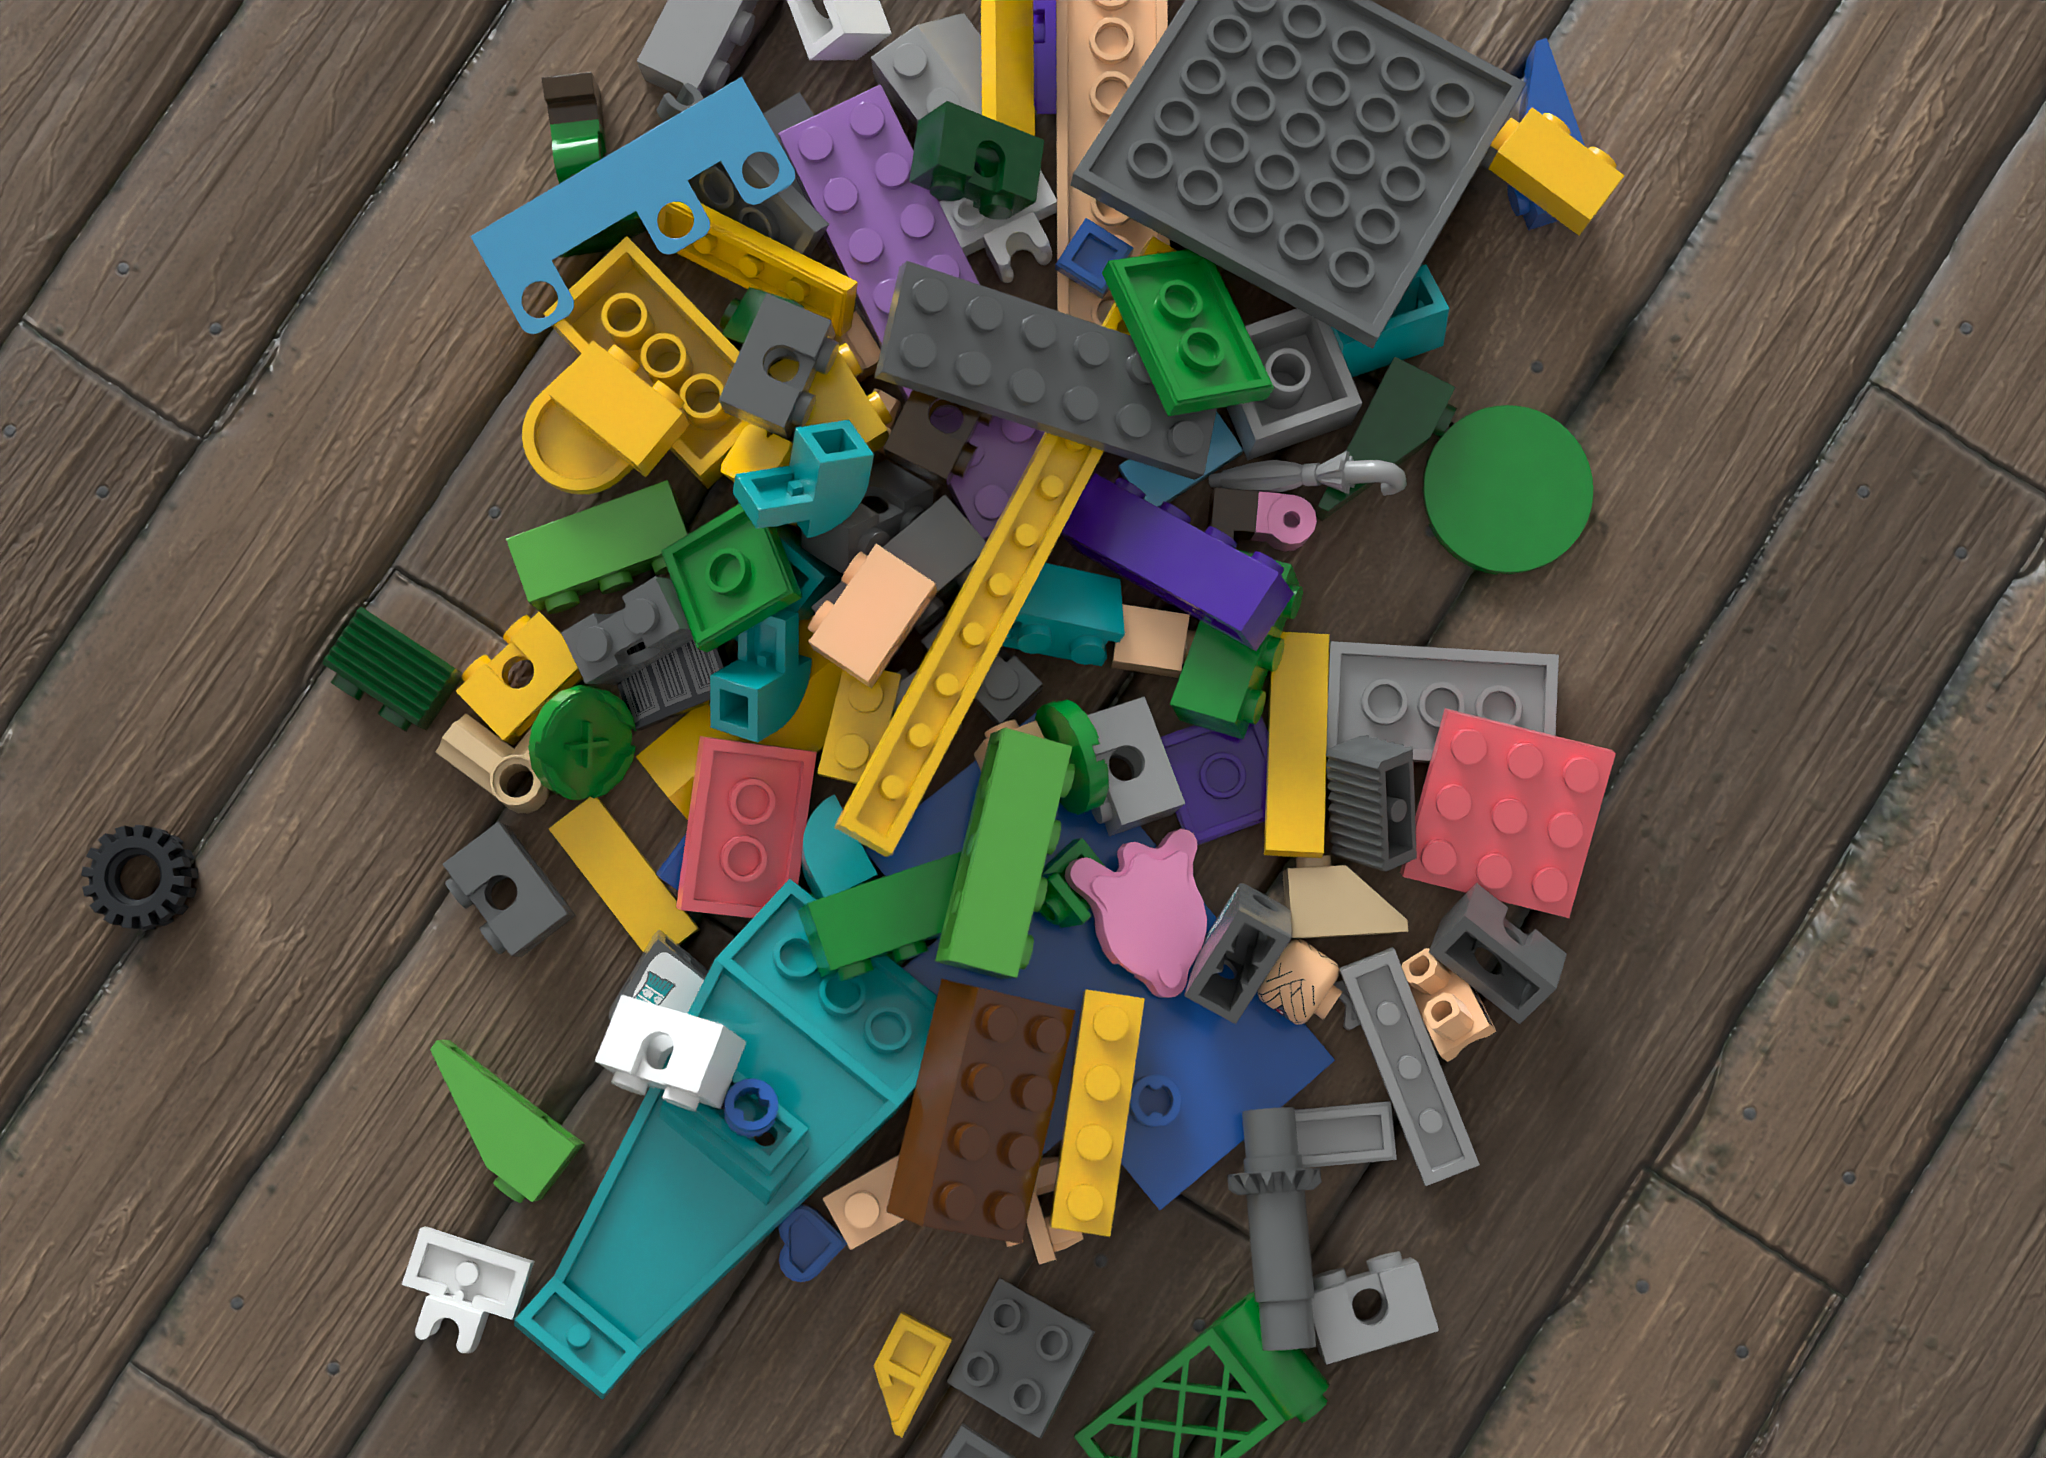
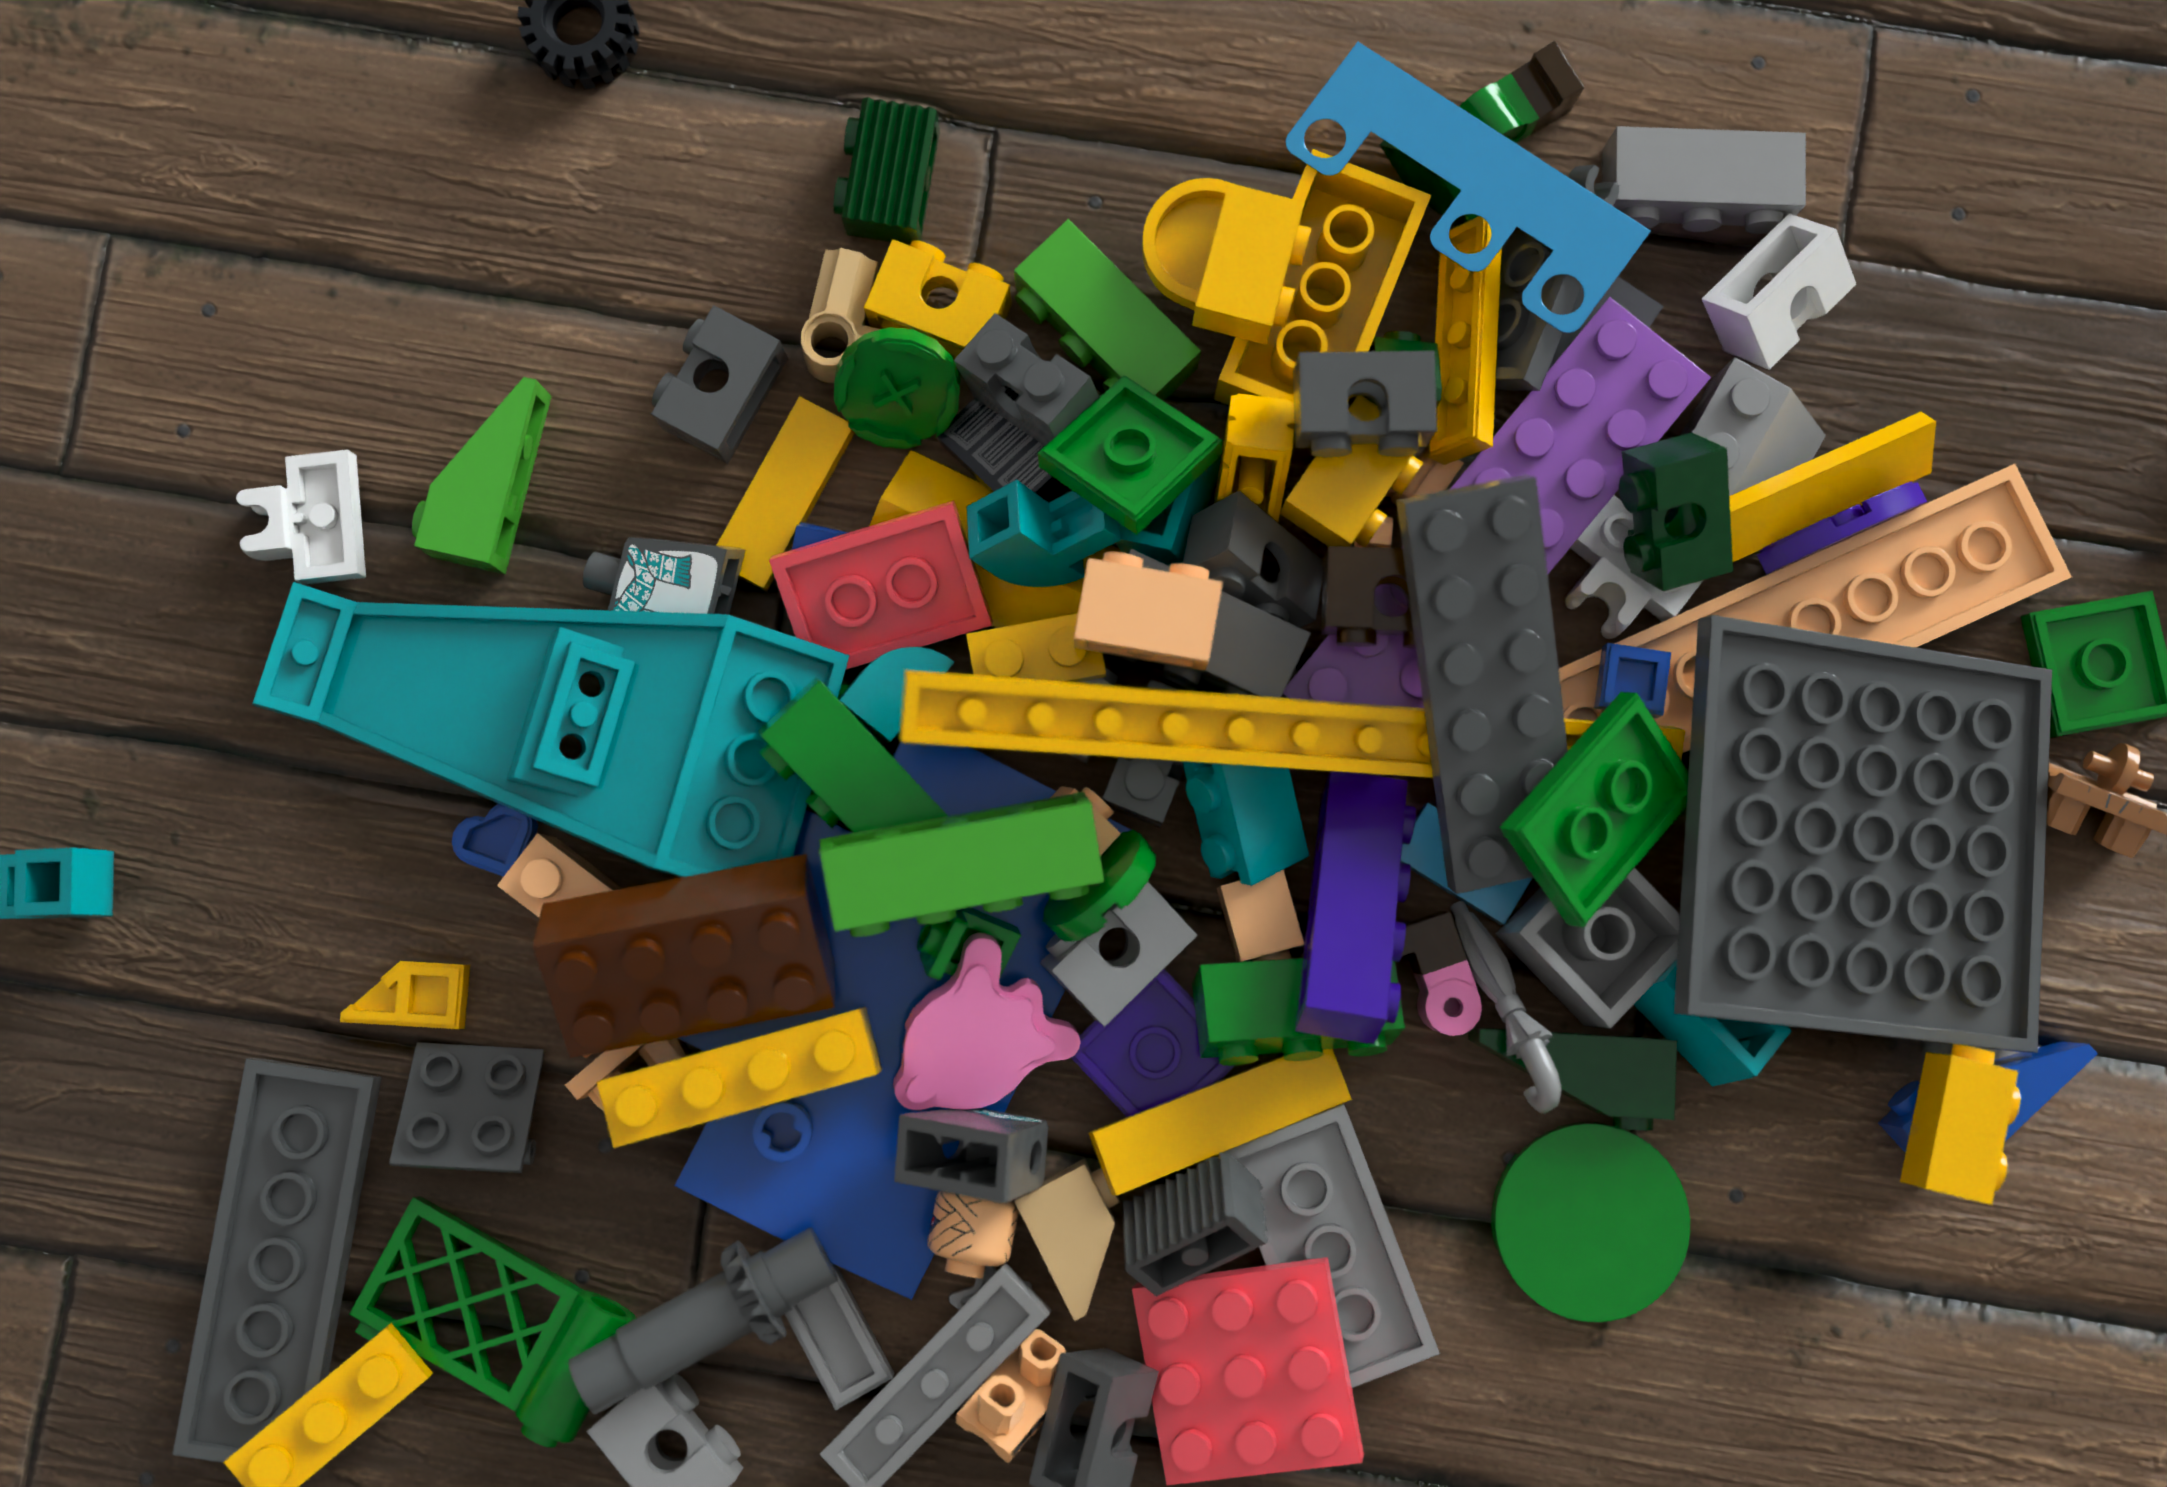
camera: 65 degrees right, 0 degrees up
(646, 1034) = (608, 611): white brick -> none
(735, 1116) = (572, 706): blue bush -> none
(818, 488) = (1255, 497): teal brick -> none

